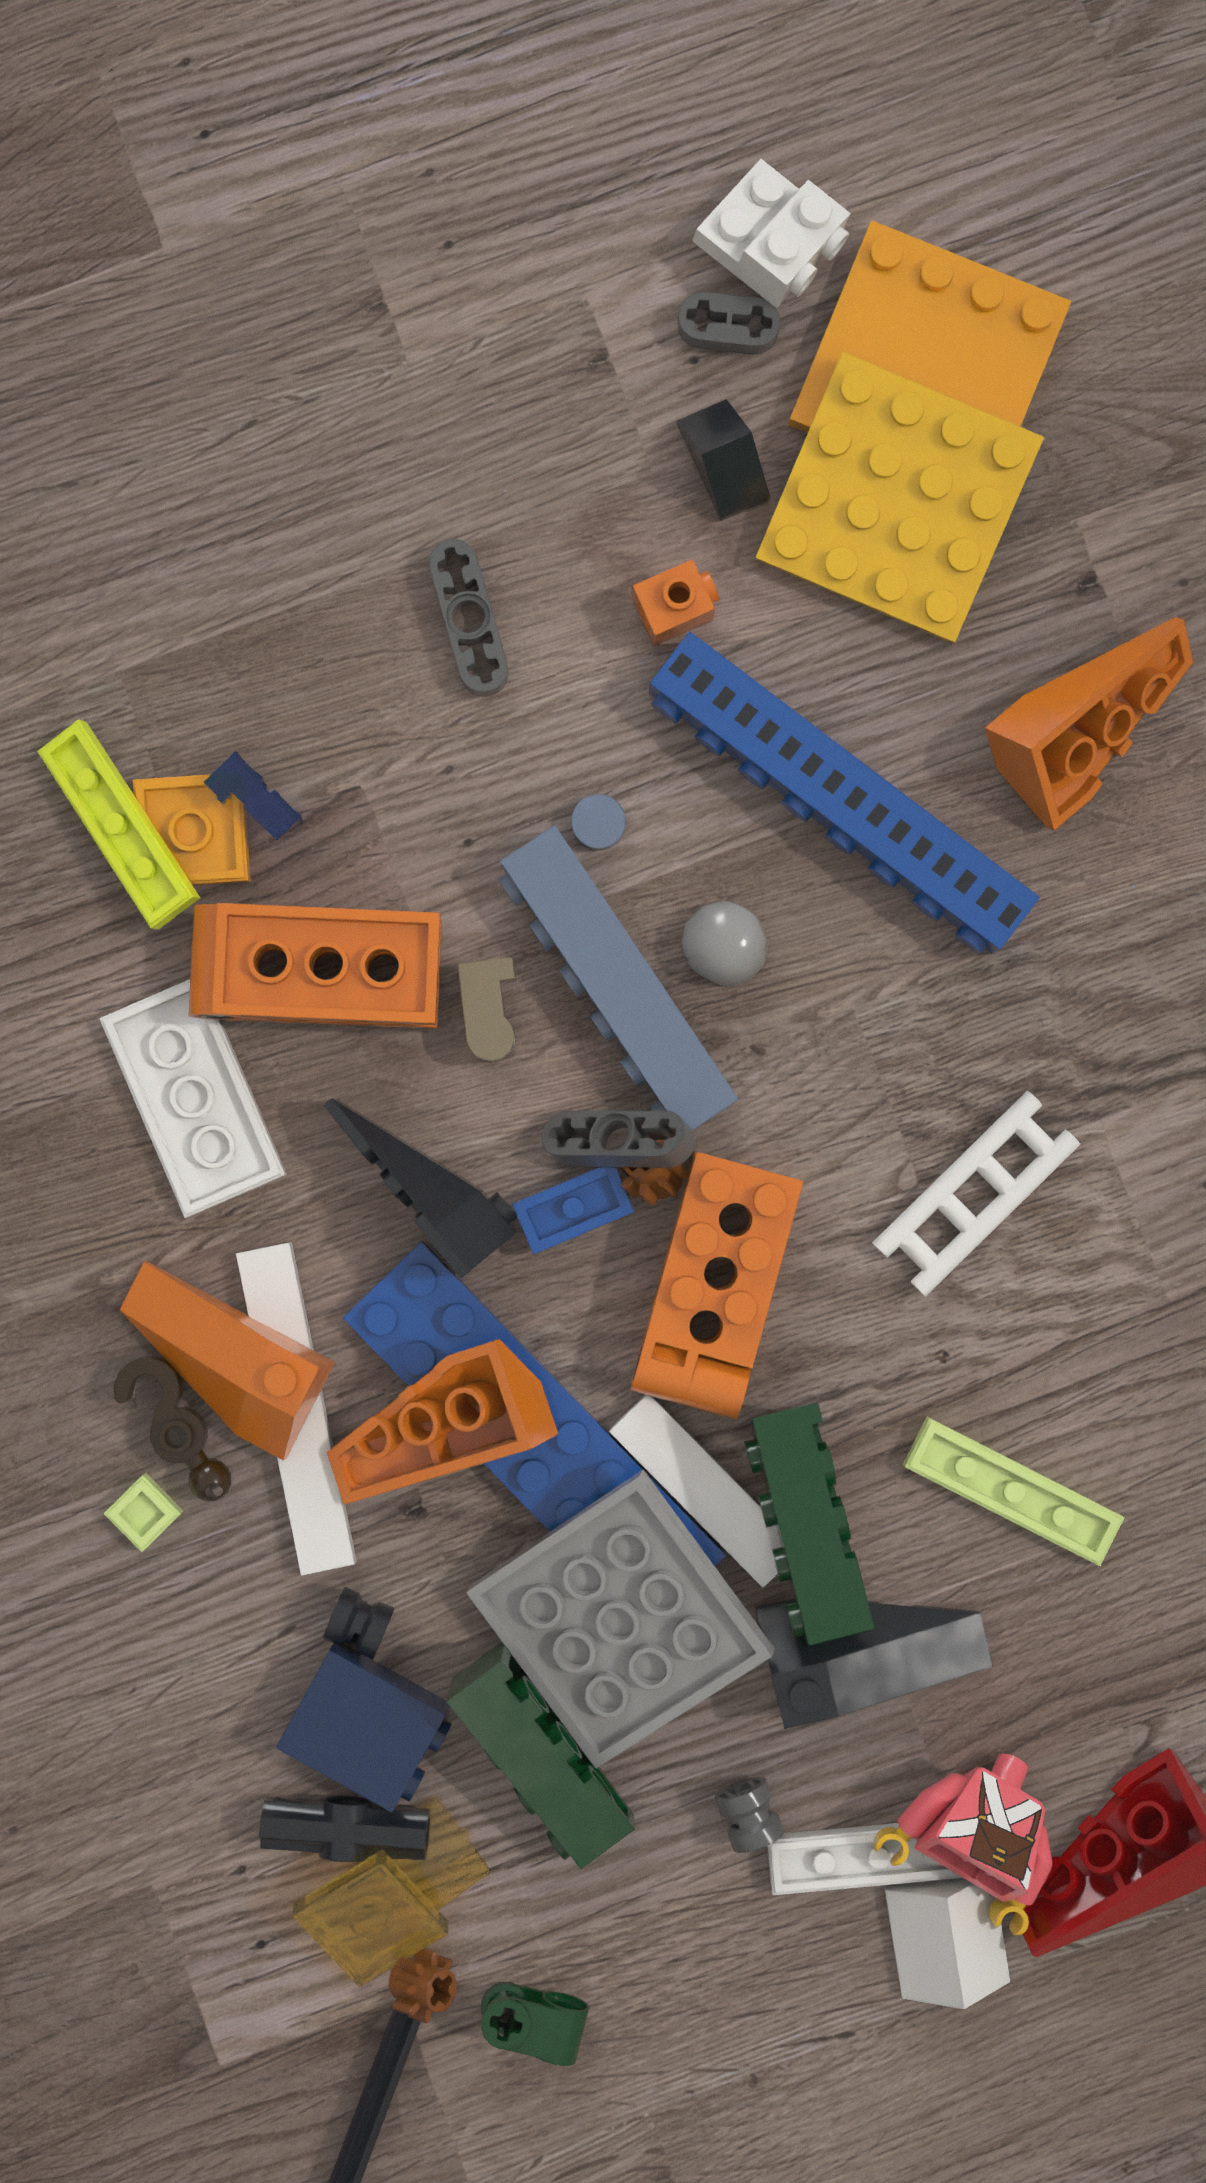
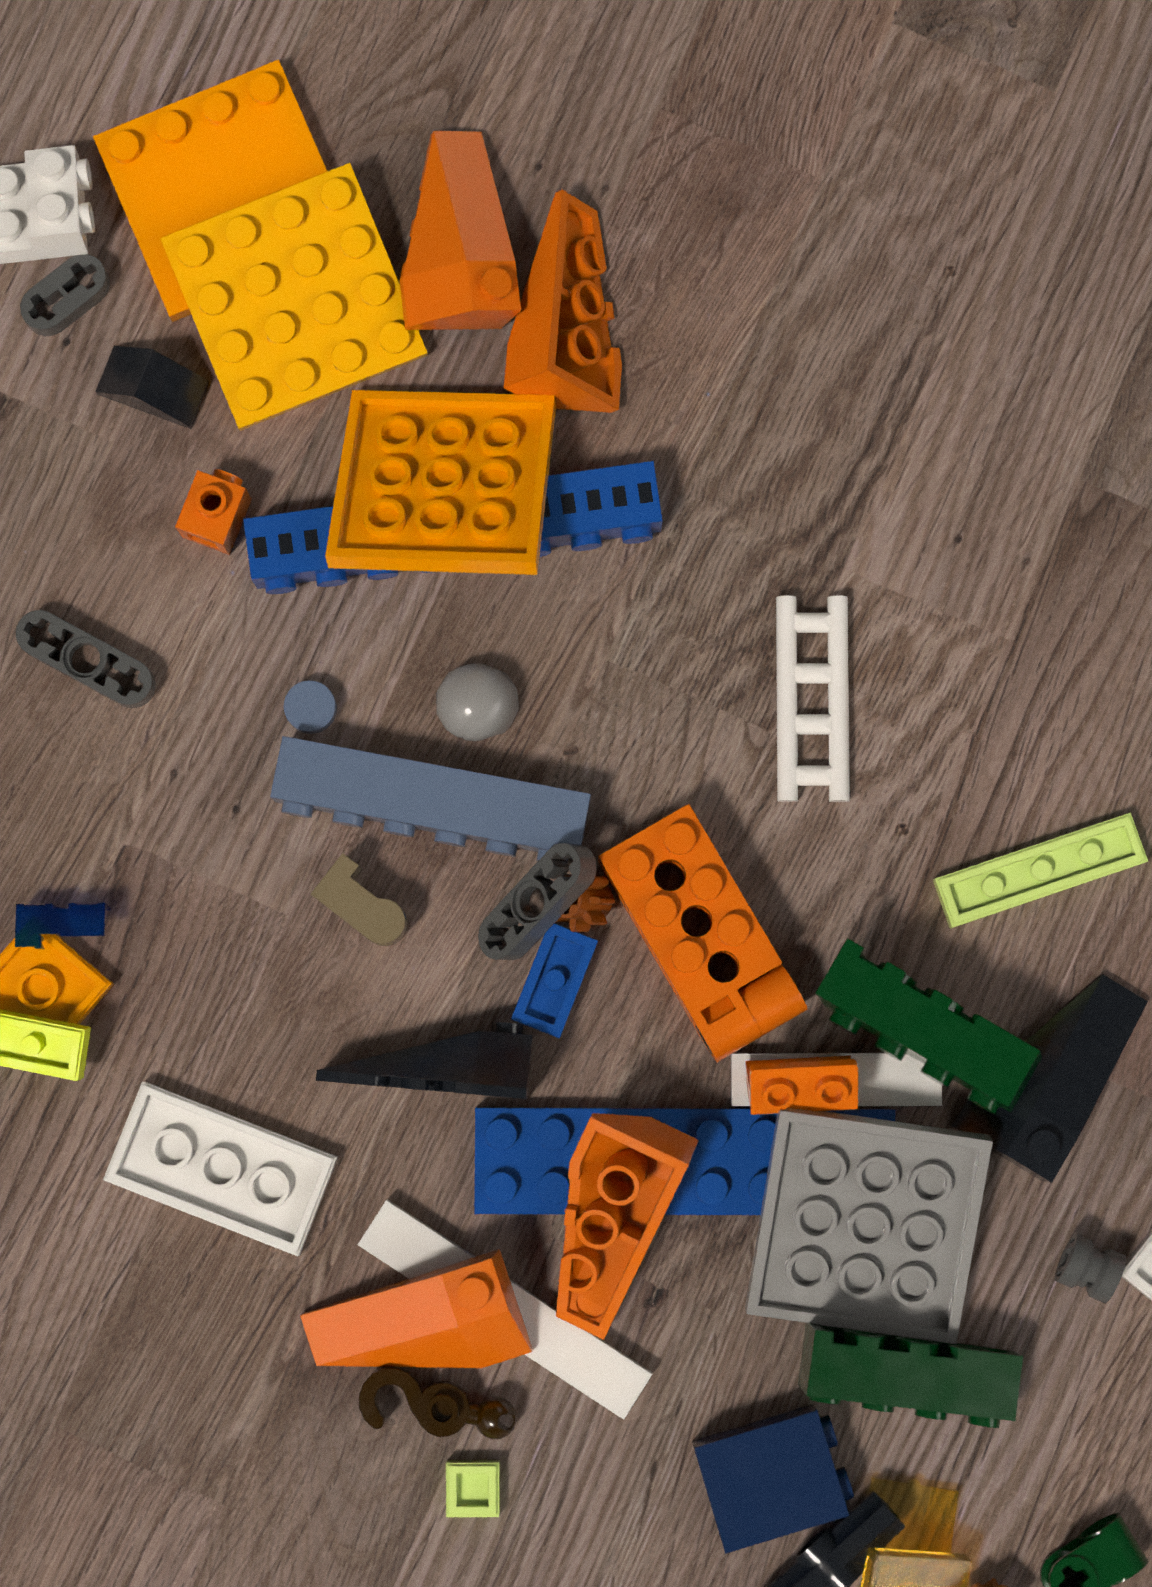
camera: 45 degrees left, 5 degrees down
(235, 938) = (142, 1027): orange hinge -> none
(358, 1623) = (695, 1411): black wheel -> none
(676, 1471) = (802, 1084): none -> orange bracket
(865, 754) = (442, 482): none -> light orange plate
(1059, 588) = (459, 248): none -> orange wedge

